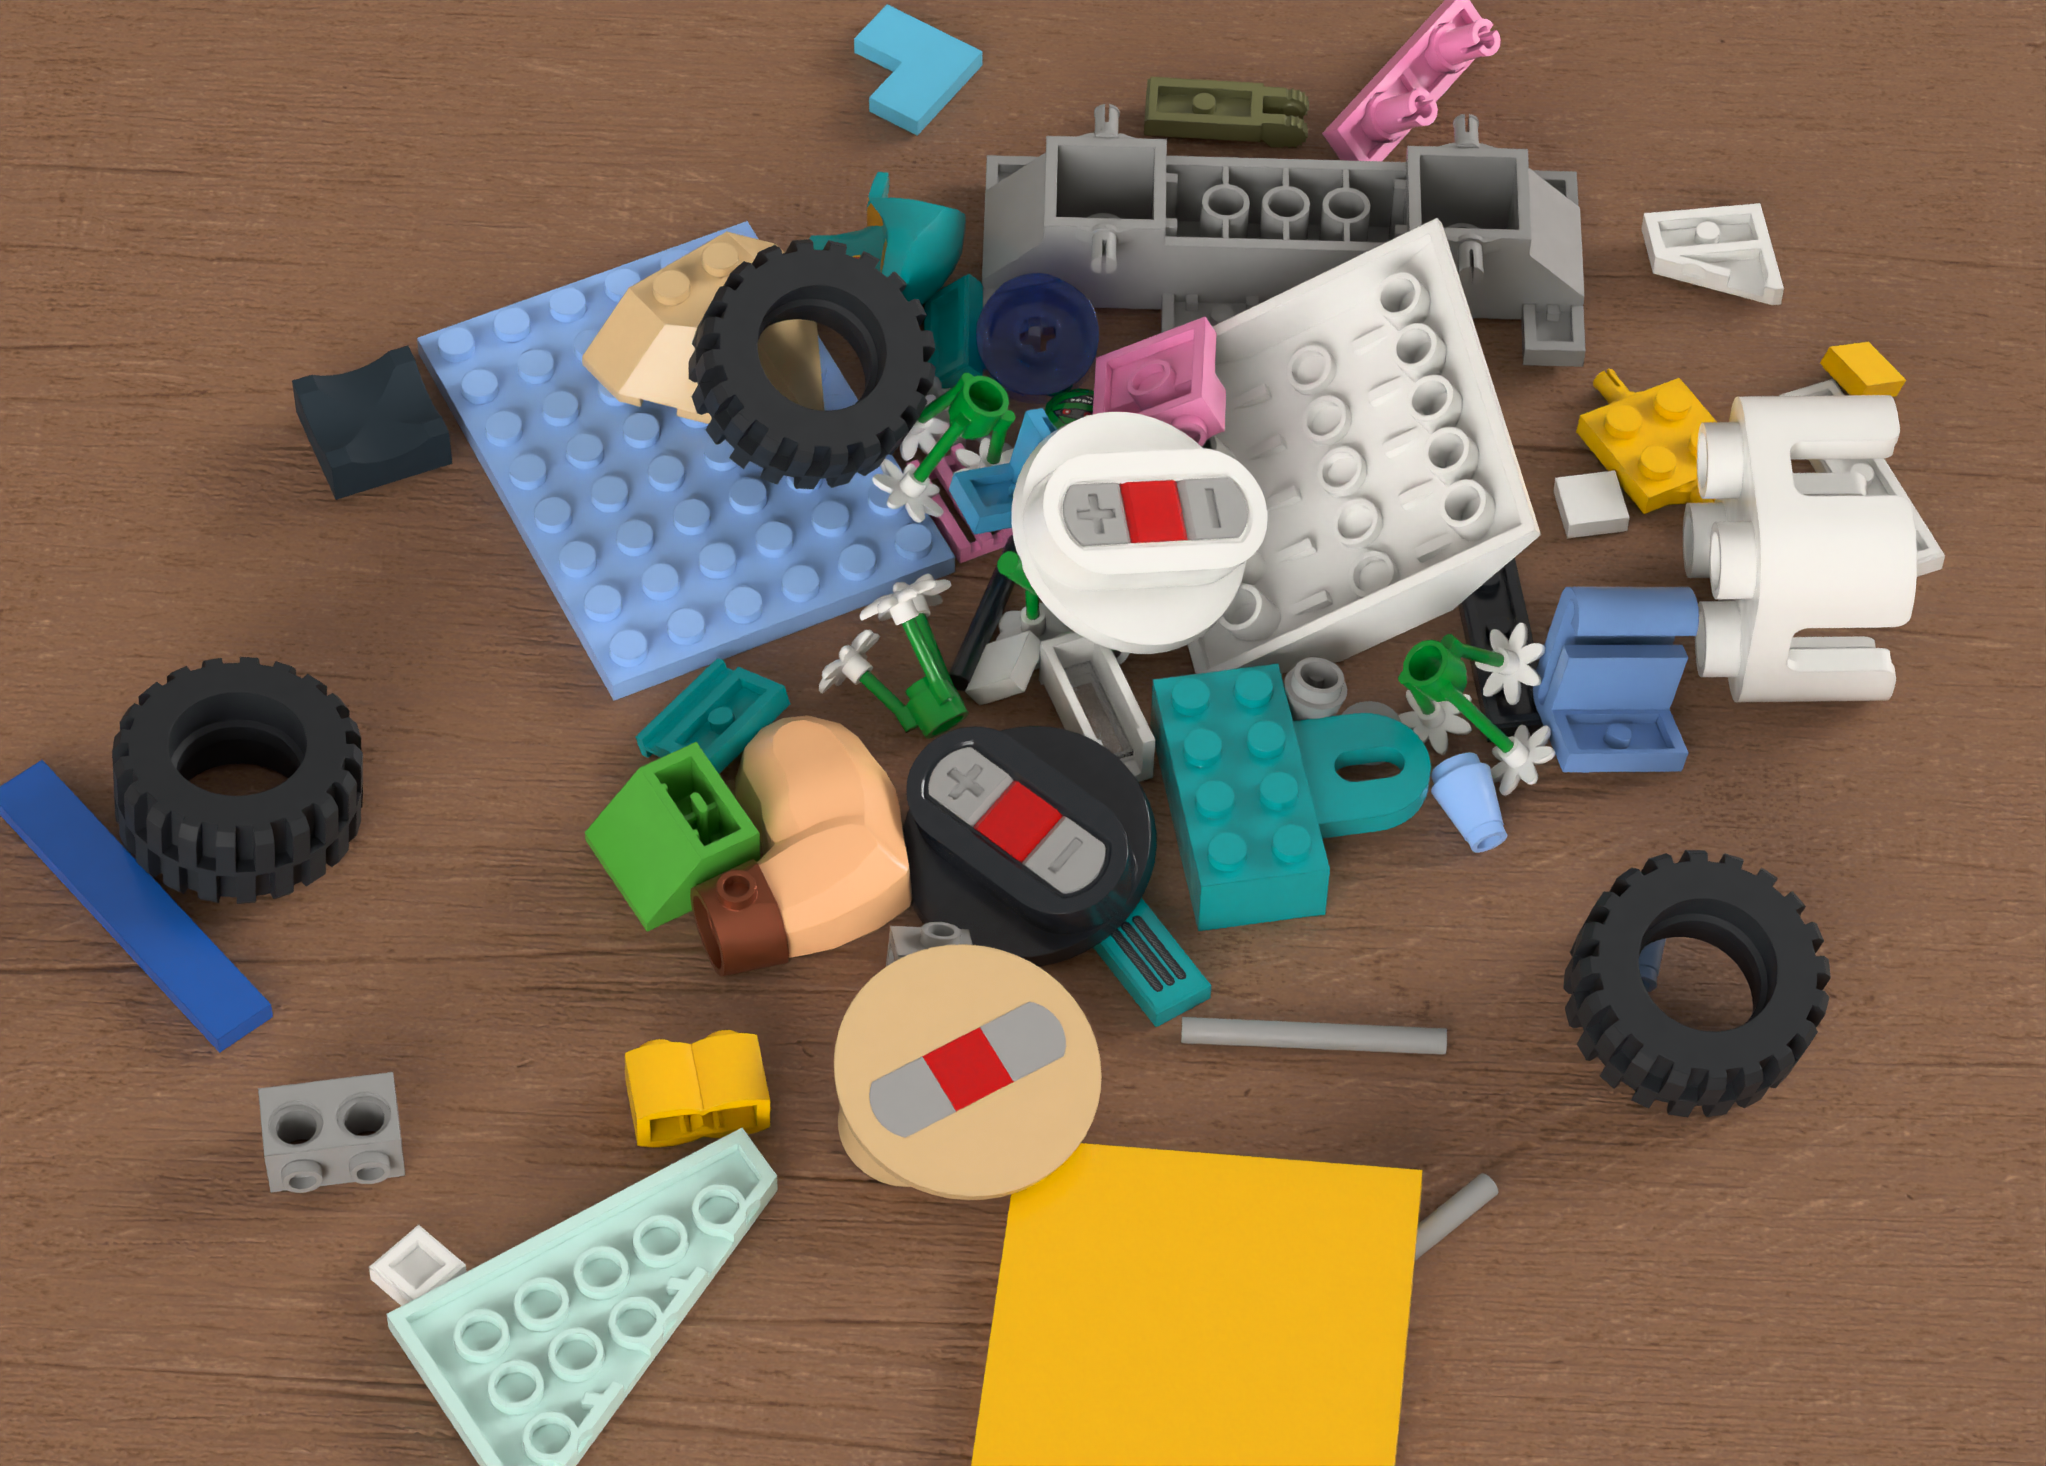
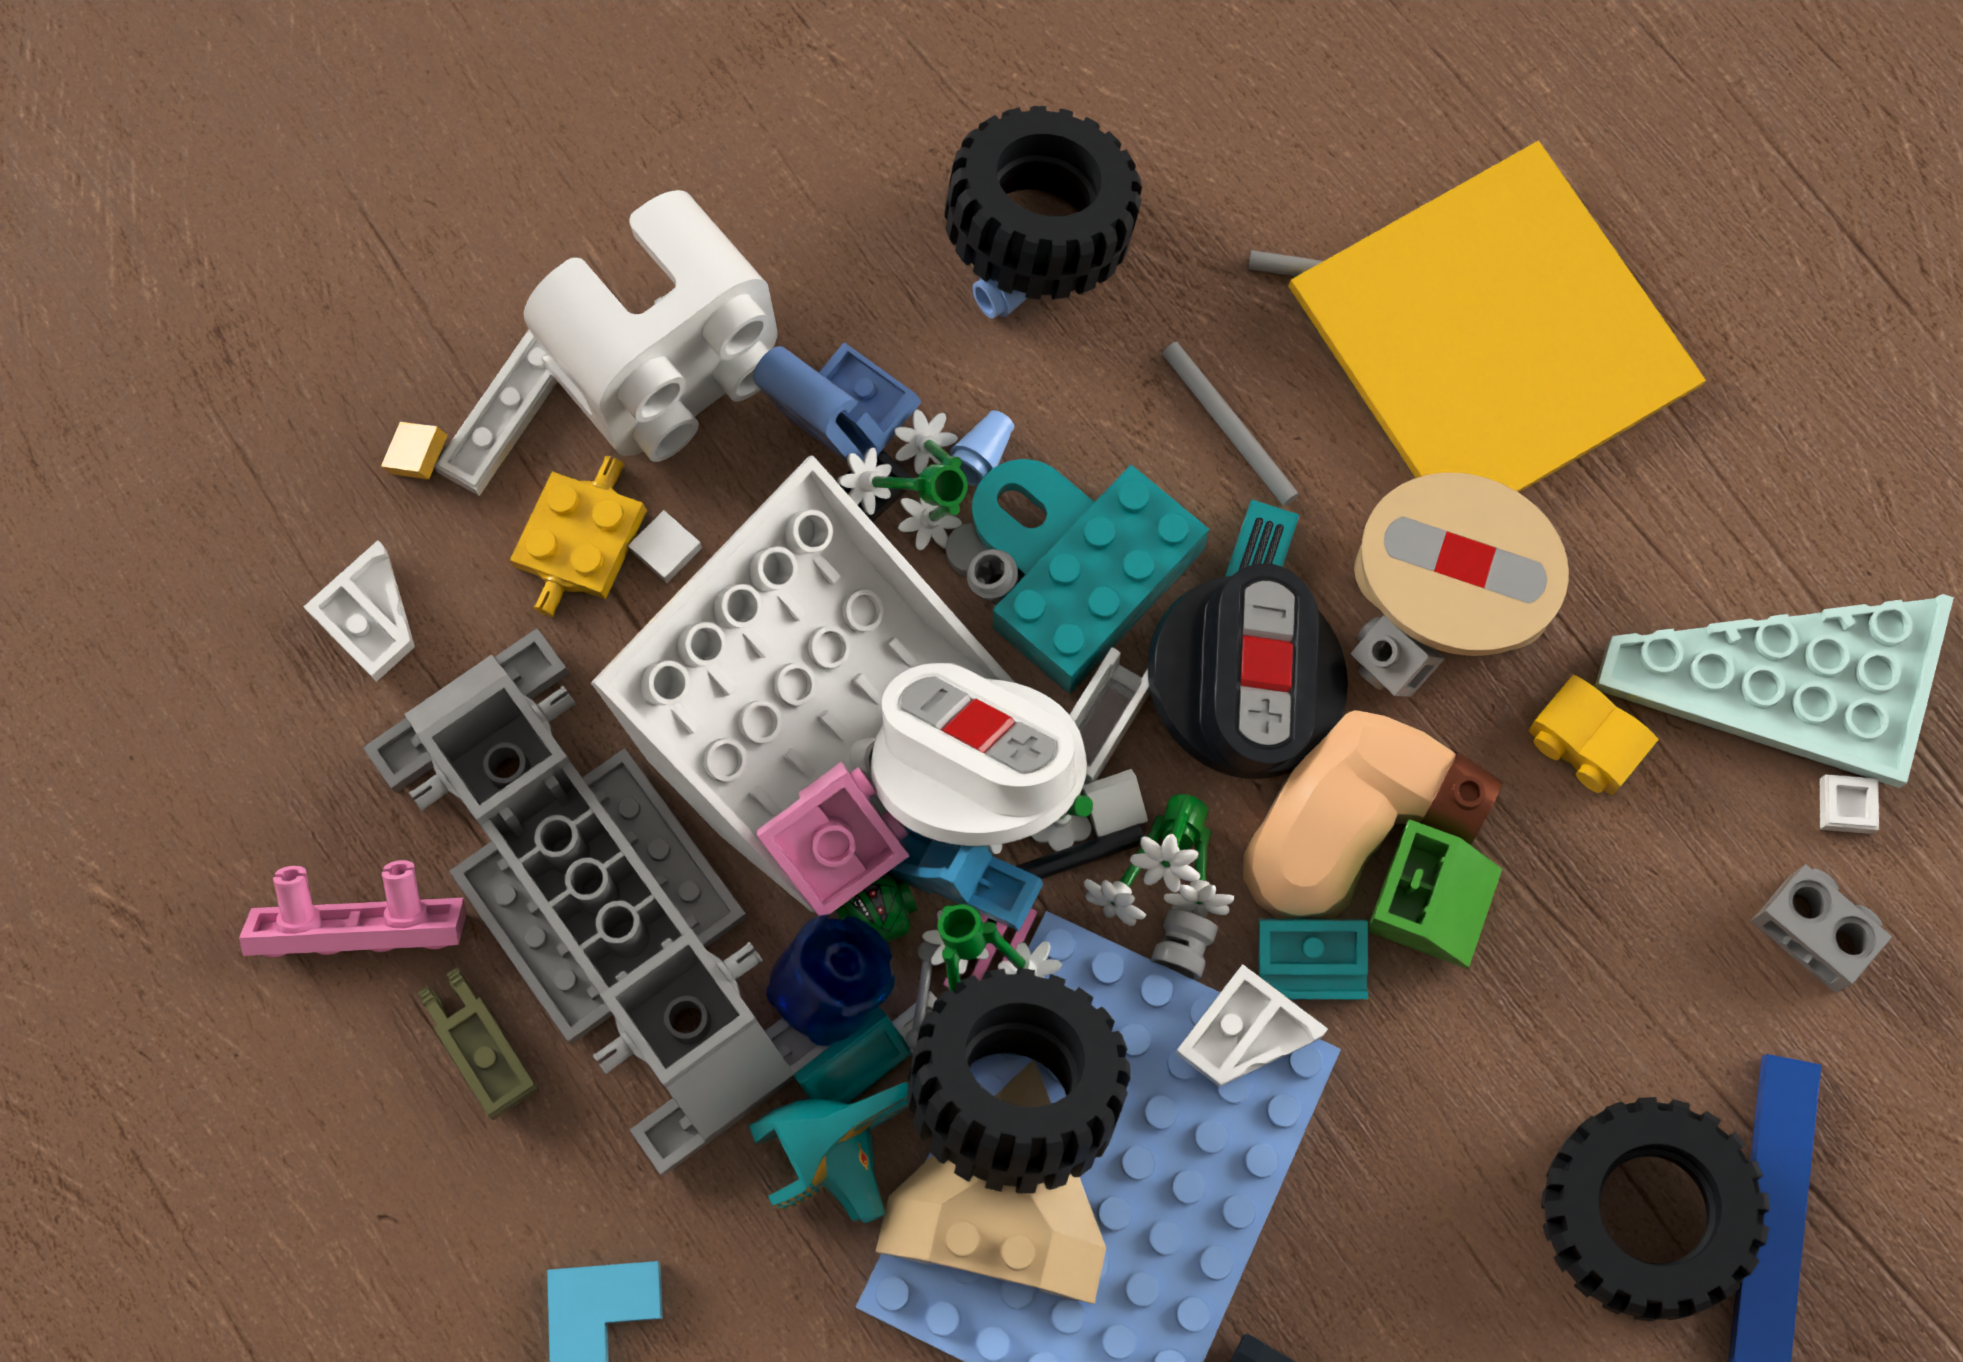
camera: 125 degrees left, 20 degrees up
(696, 601) = (1247, 1030): none -> white wing
(818, 625) = (1184, 942): none -> light grey wheel

